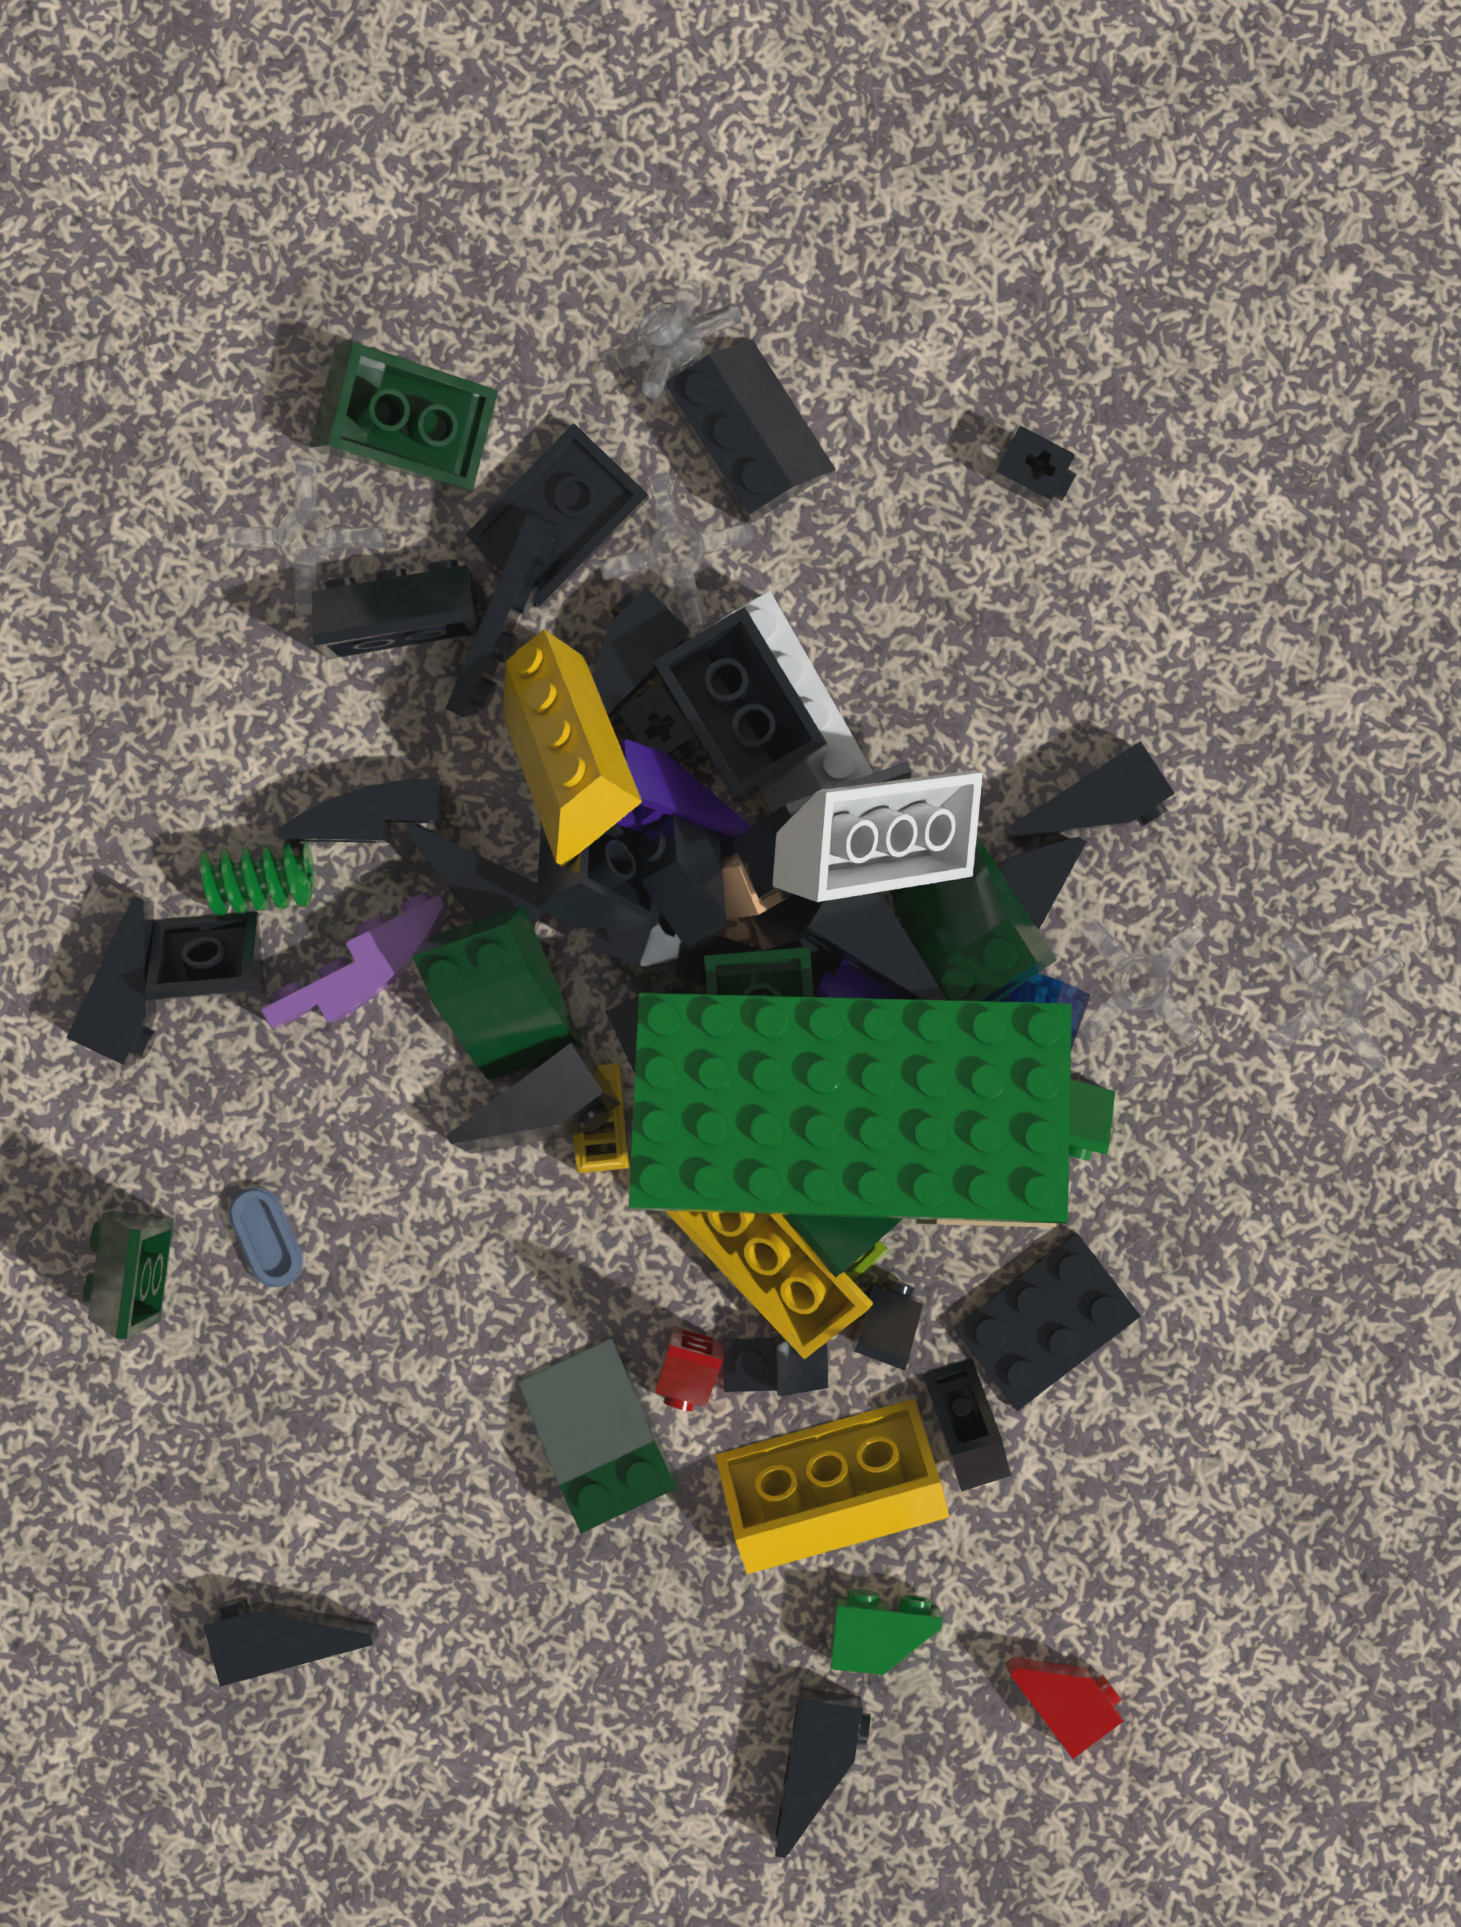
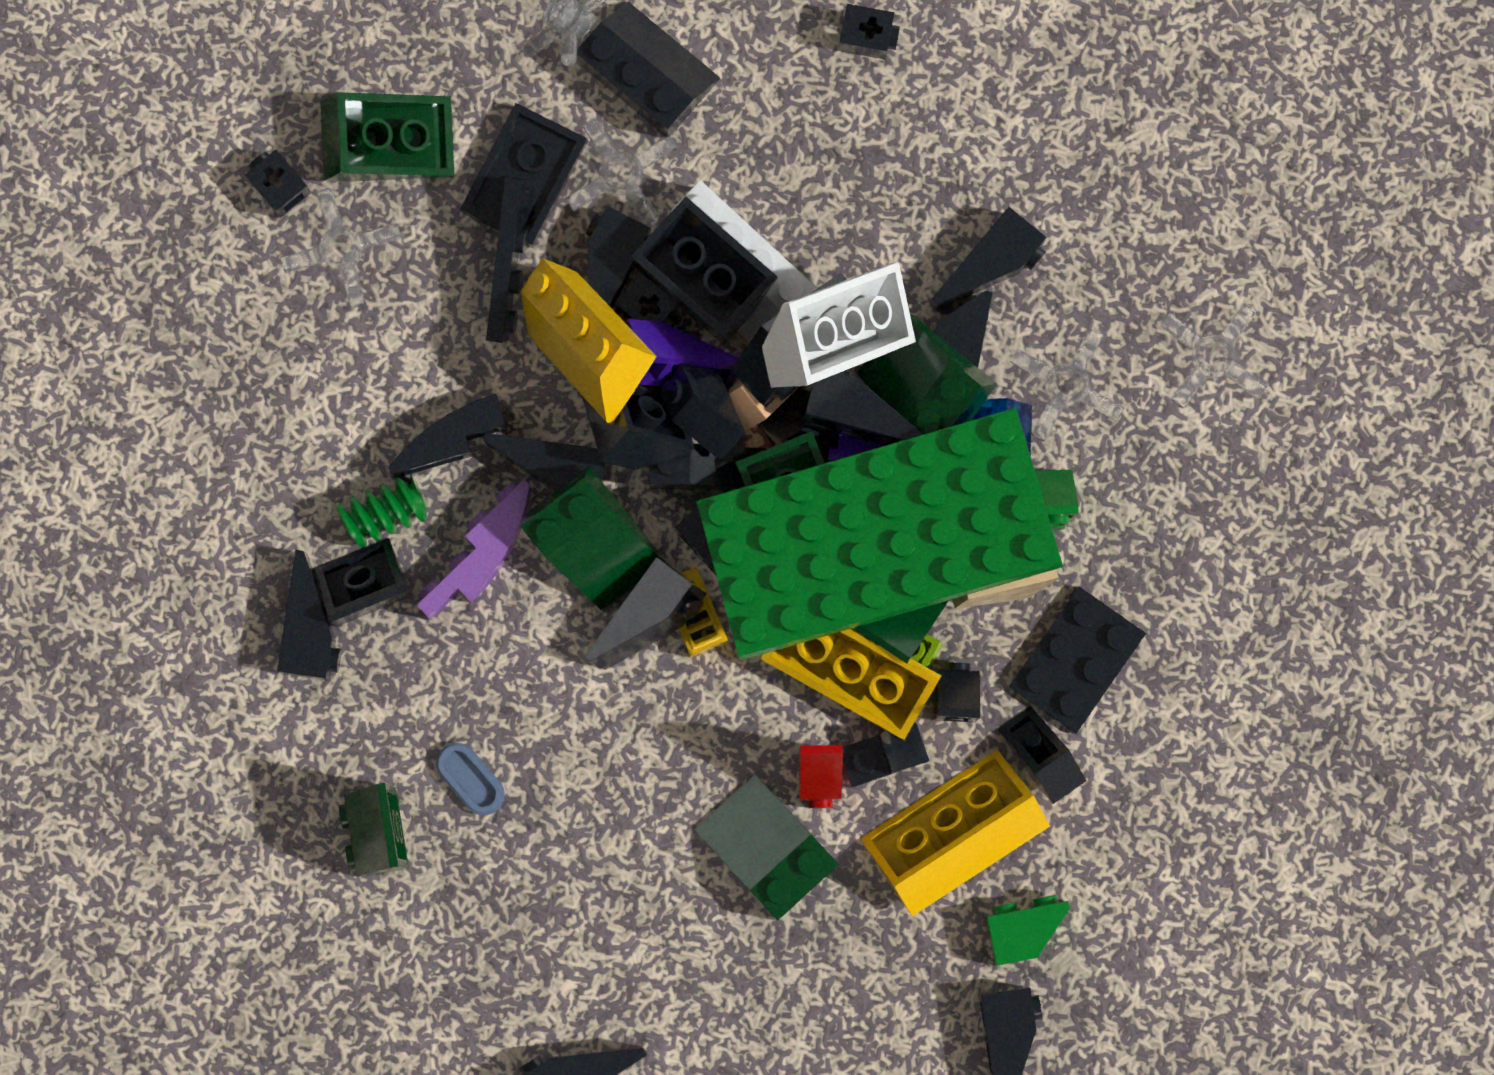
camera: 20 degrees left, 5 degrees down
(263, 450) = (281, 198): none -> black brick
(394, 610) = (426, 280): black slope -> none
(1068, 1700) = (1184, 938): red slope -> none

